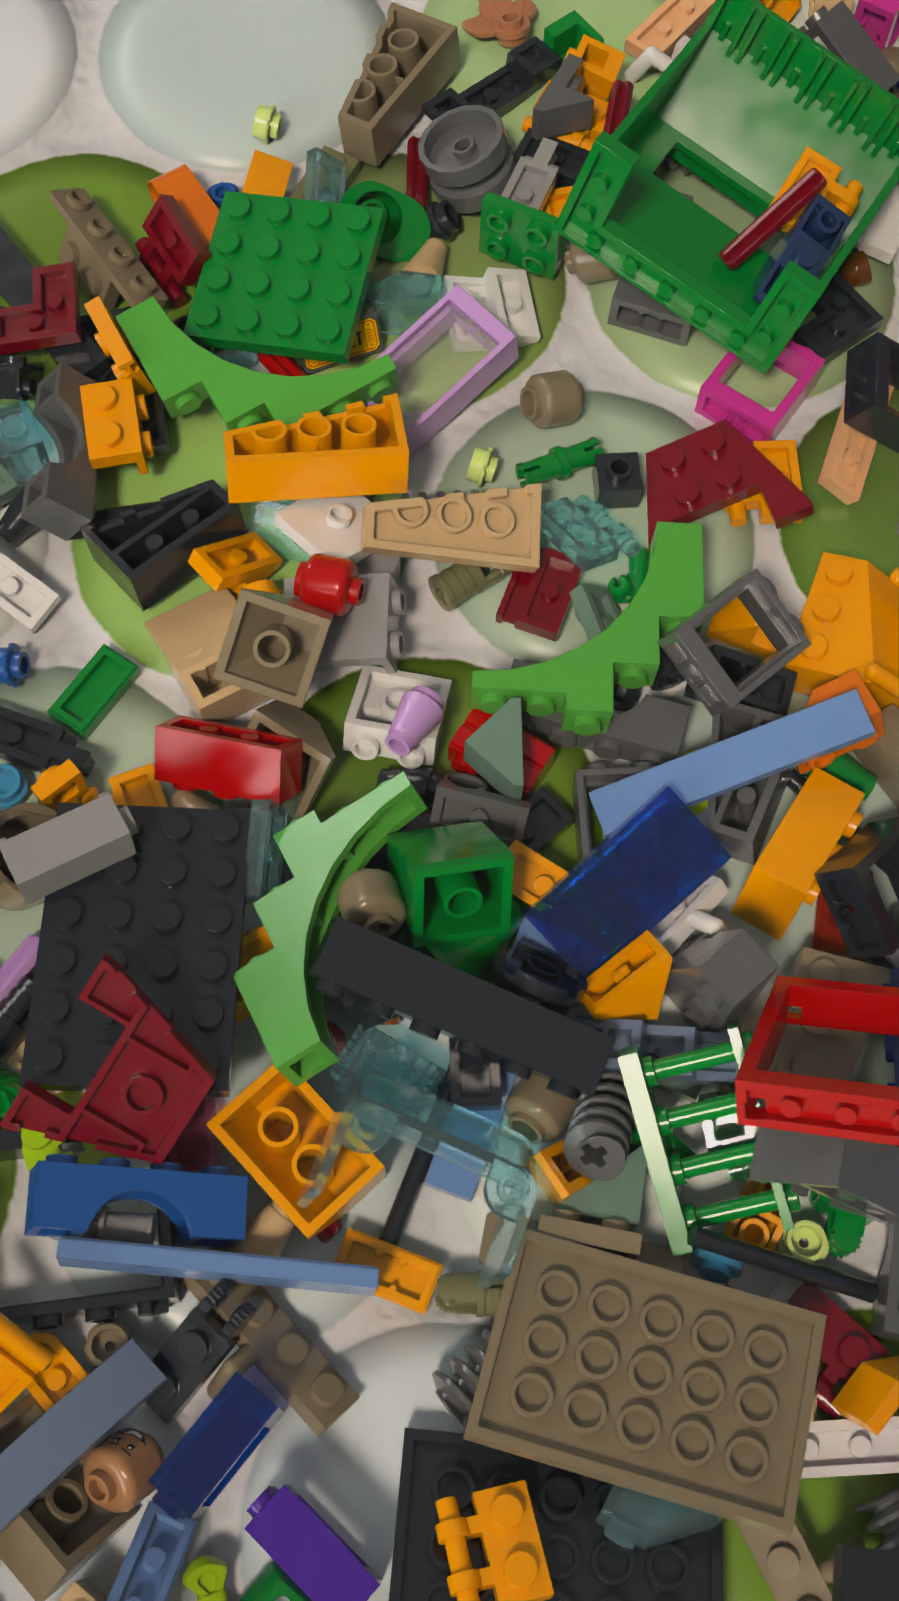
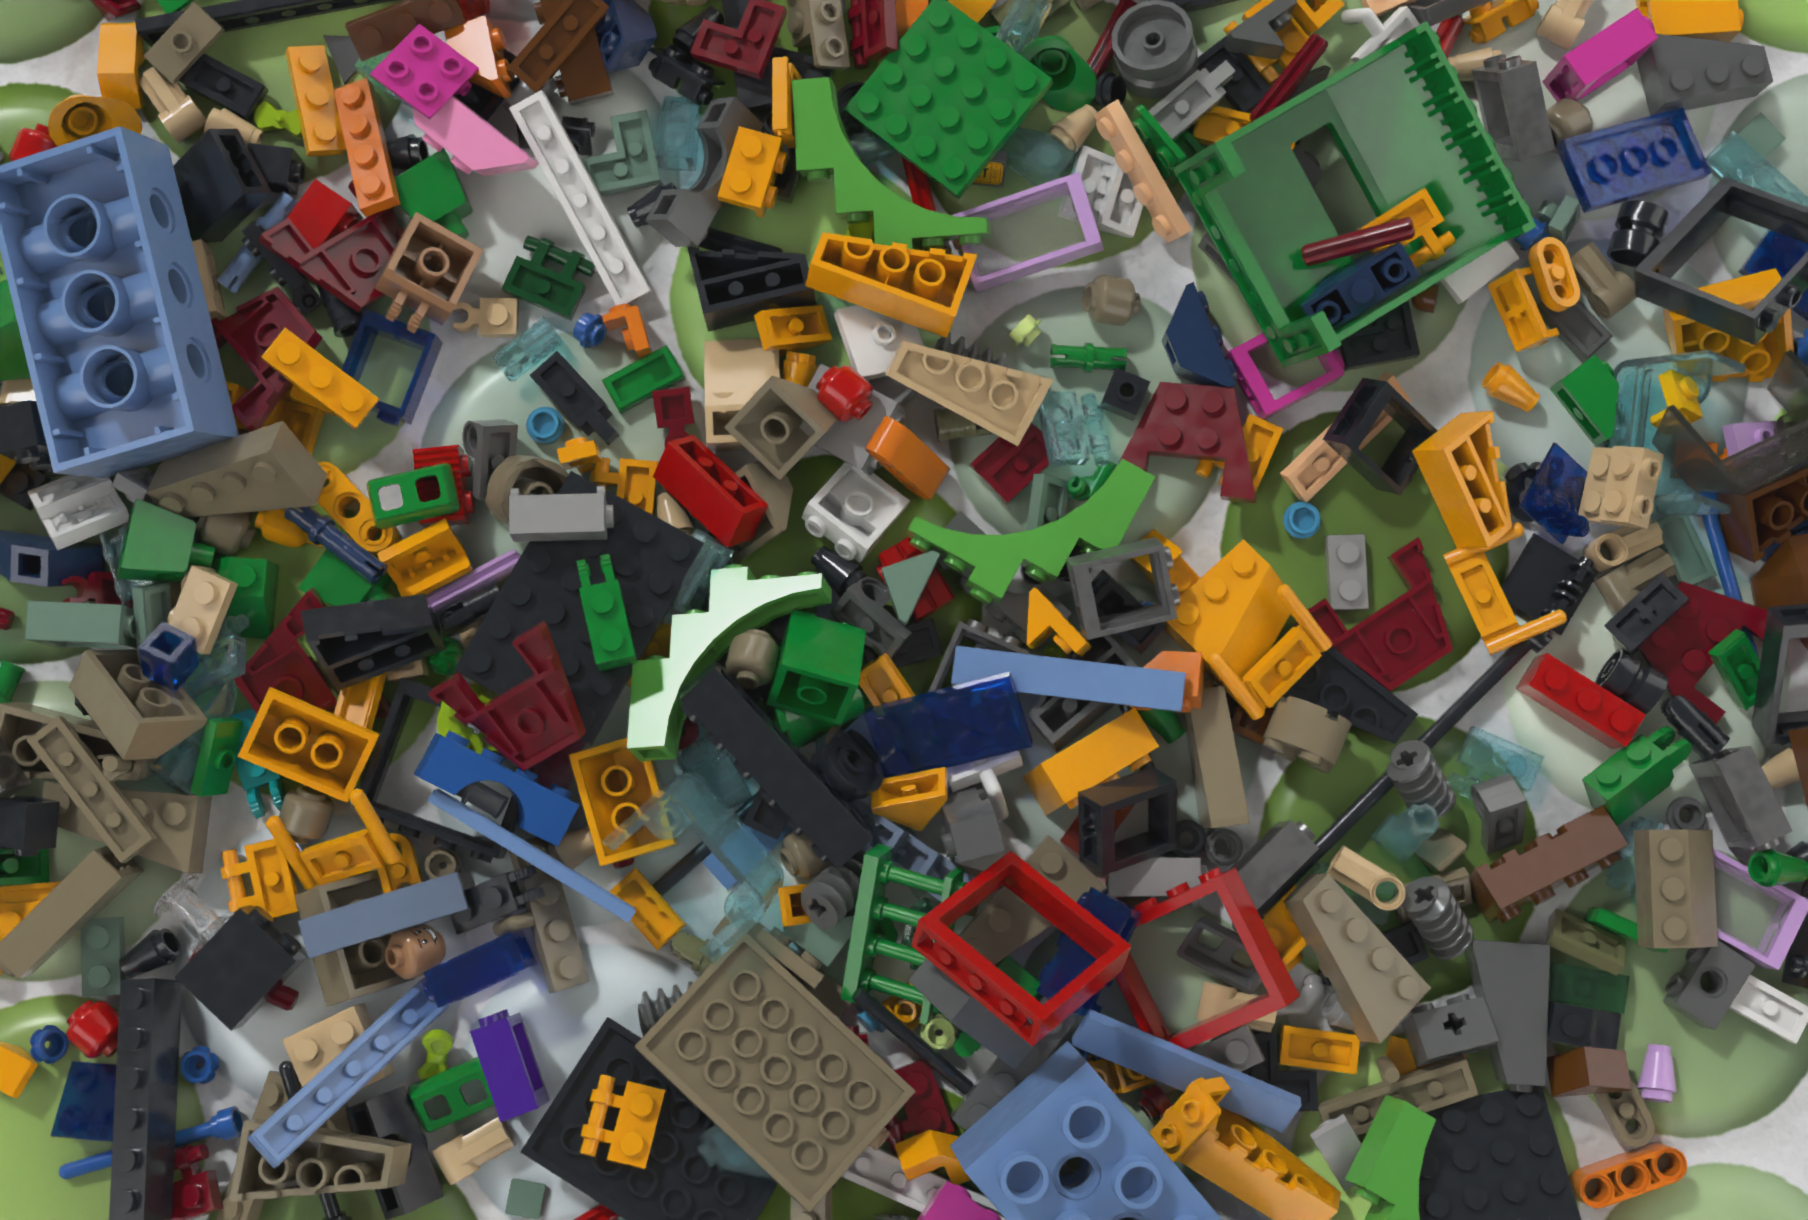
camera: 25 degrees right, 15 degrees up
(55, 637) = (635, 335): none -> orange bracket
(143, 704) = (673, 410): none -> dark red plate
(180, 930) = (606, 617): none -> green hinge
(414, 719) = (856, 529): lavender cone -> none
(428, 628) = (907, 458): none -> orange beam
(518, 267) = (1137, 163): none -> light nougat plate
(659, 403) = (1195, 344): none -> dark blue slope
(674, 713) = (1045, 619): none -> light orange slope
(864, 519) = (1301, 520): none -> dark azure plate

